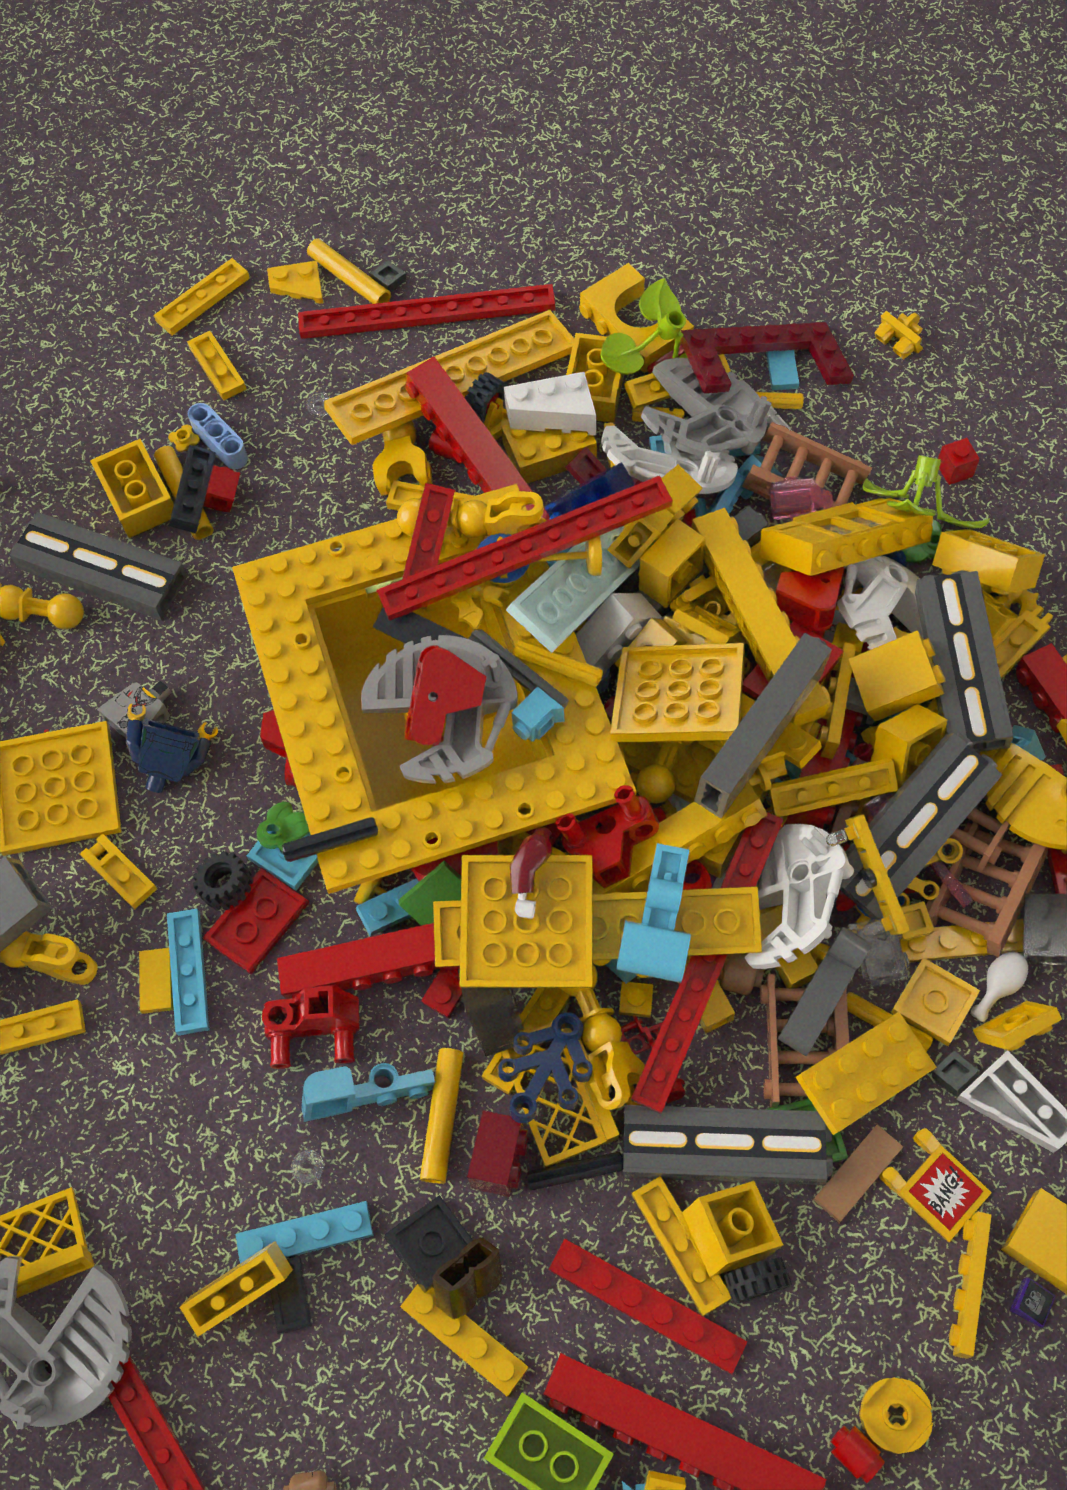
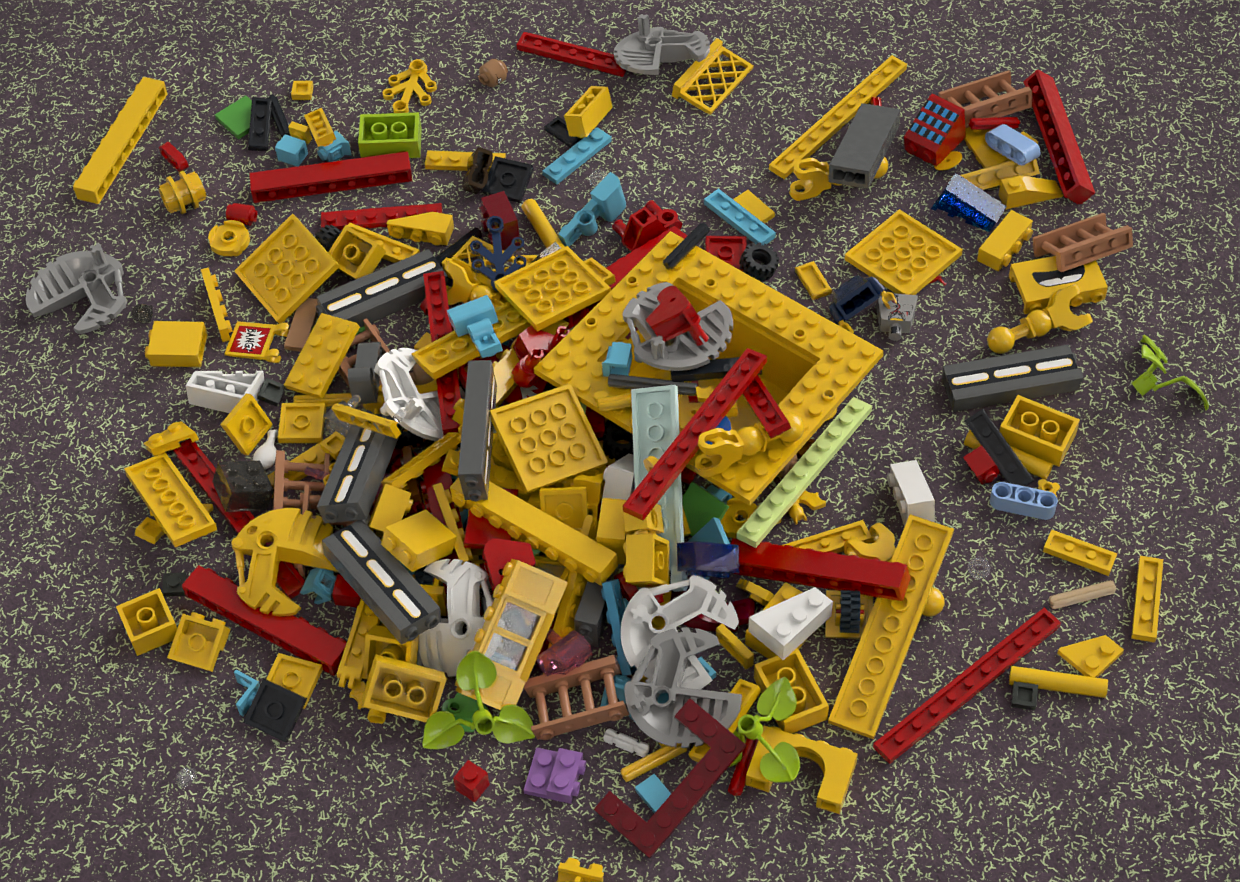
camera: 145 degrees right, 10 degrees down
(119, 872) = (825, 238): yellow plate -> none
(181, 825) = (813, 280): none -> yellow tile
(252, 332) = (1082, 594): none -> tan axle
(317, 493) = (911, 491): none -> white wedge
(529, 858) = (567, 299): dark red arm -> none
(552, 475) = (757, 593): none -> yellow wing
(596, 1229) = (425, 227): none -> yellow slope
(843, 1268) = (286, 268): none -> yellow plate
(867, 432) = (555, 774): none -> medium lavender plate
(1032, 1302) = (181, 313): slope -> none

